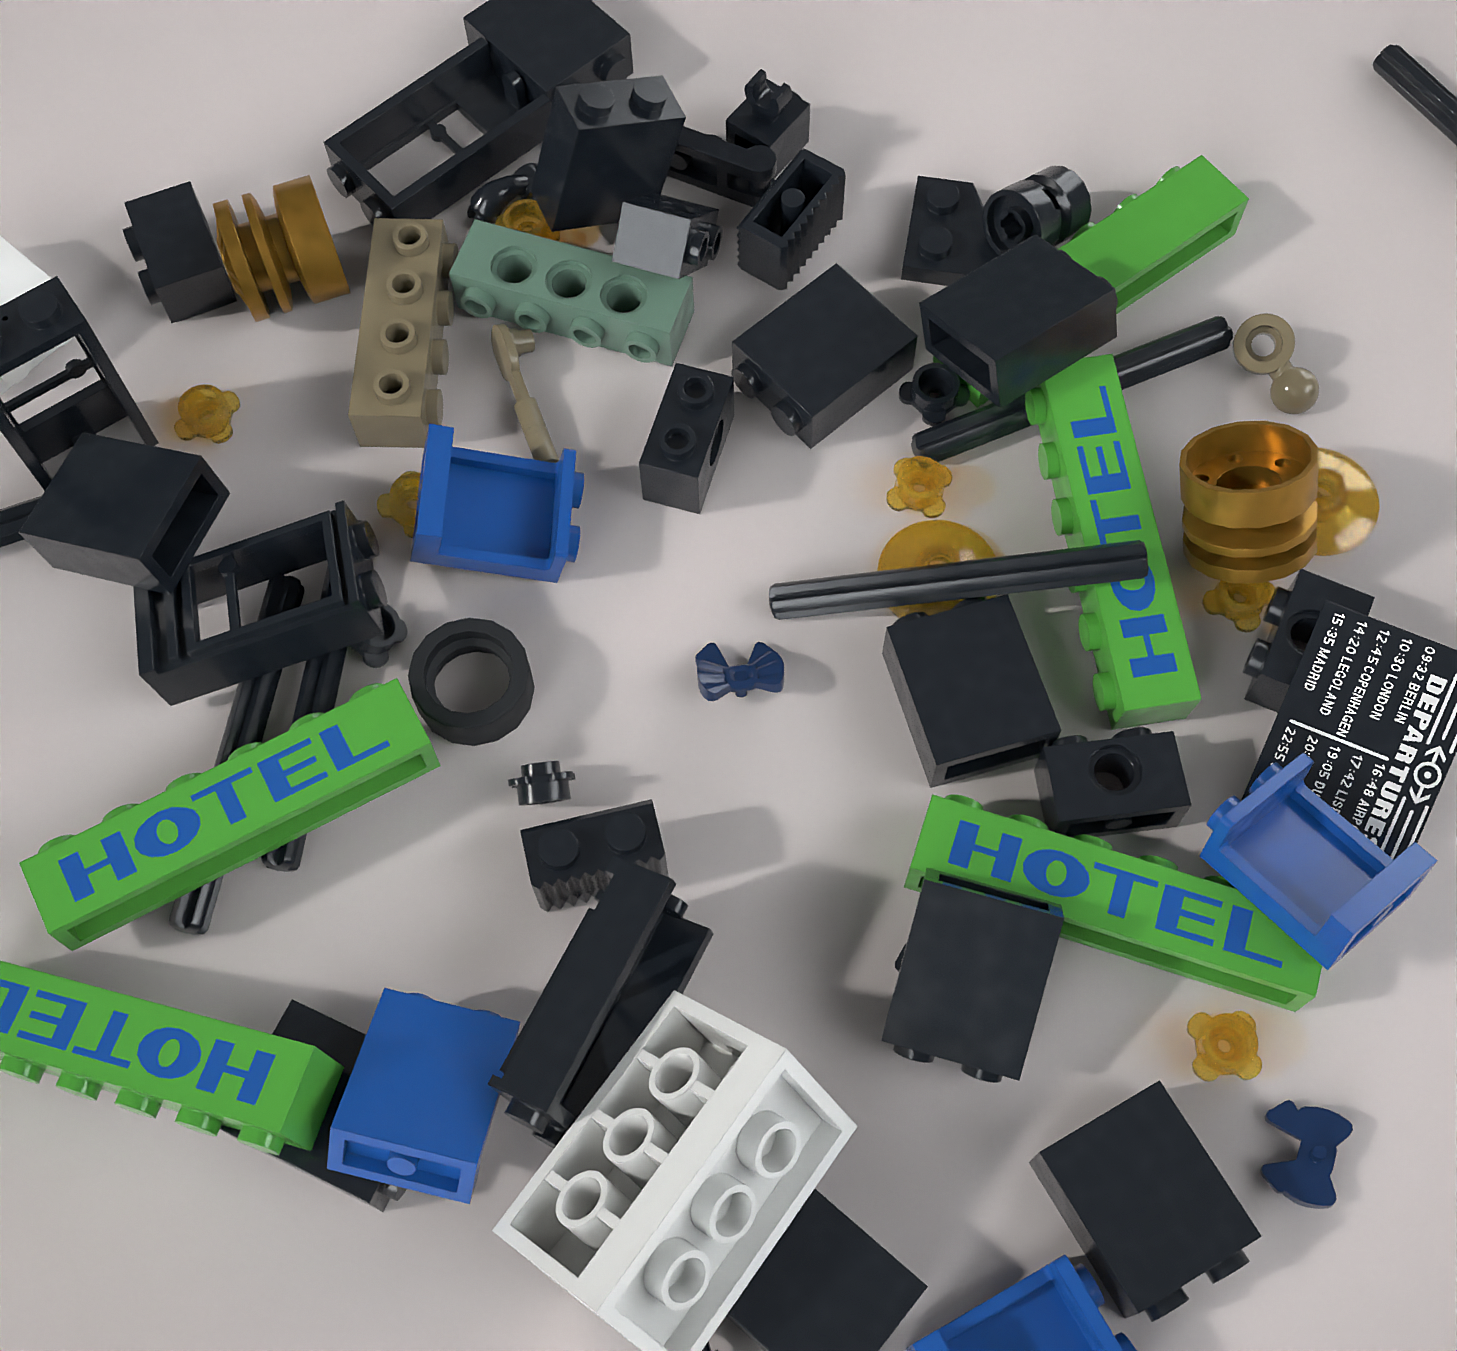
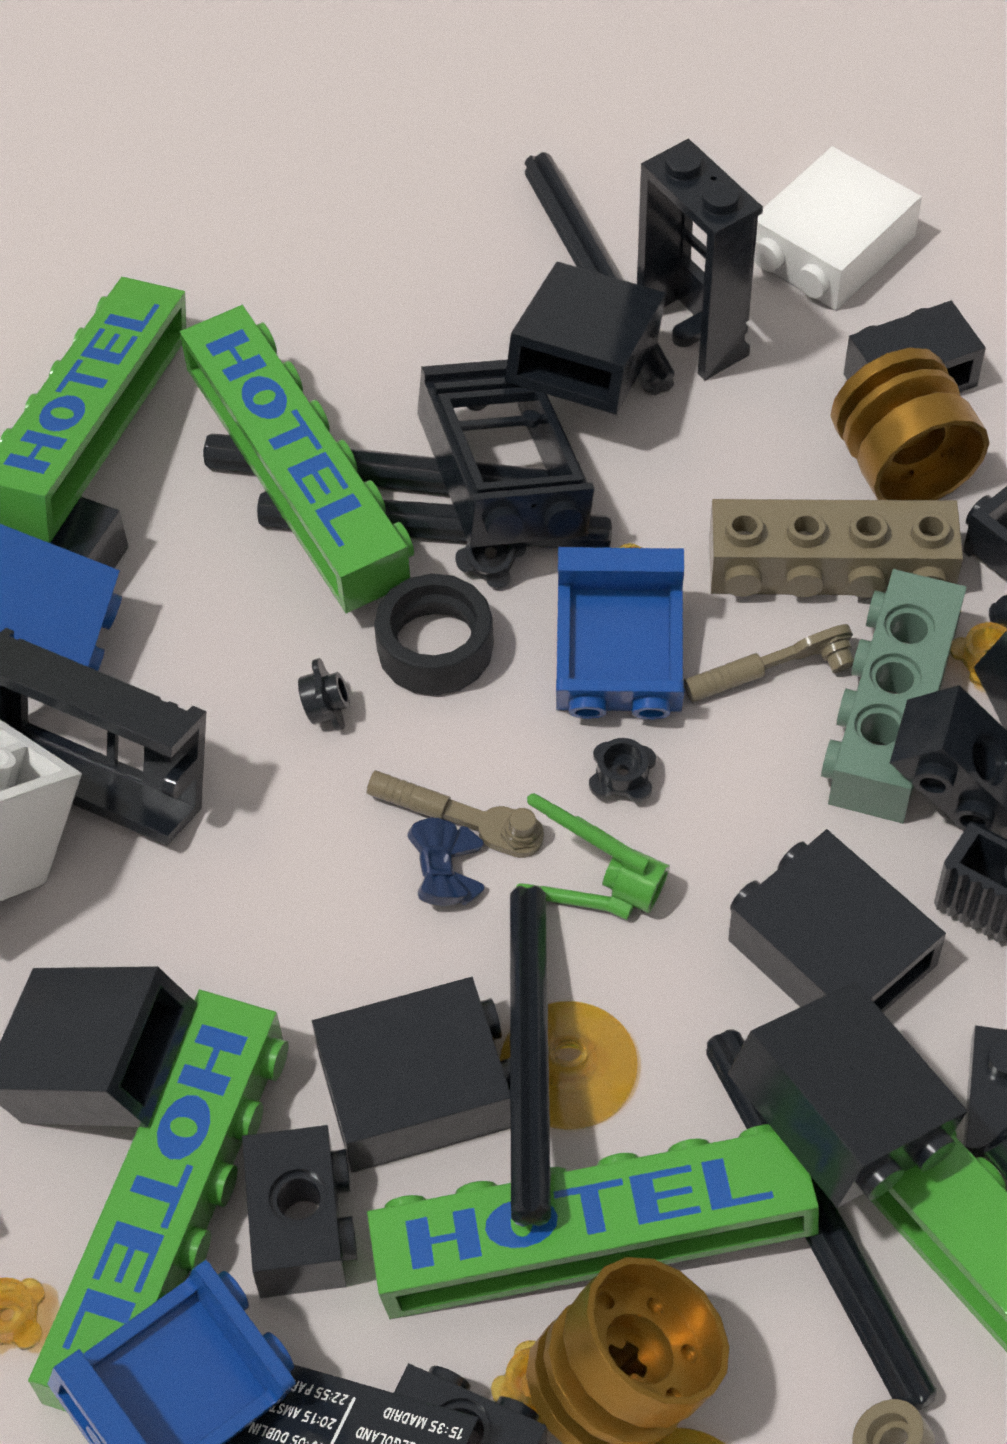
camera: 90 degrees right, 10 degrees down
(201, 401) = (730, 405): clear yellow plate -> none
(571, 855) = (245, 738): black brick -> none
(635, 505) = (625, 755): none -> black plate
(687, 438) = (713, 802): black brick -> none
(692, 629) = (500, 827): none -> dark tan piece
(755, 513) = (631, 875): none -> bright green plant
(923, 472) = (678, 1022): clear yellow plate -> none

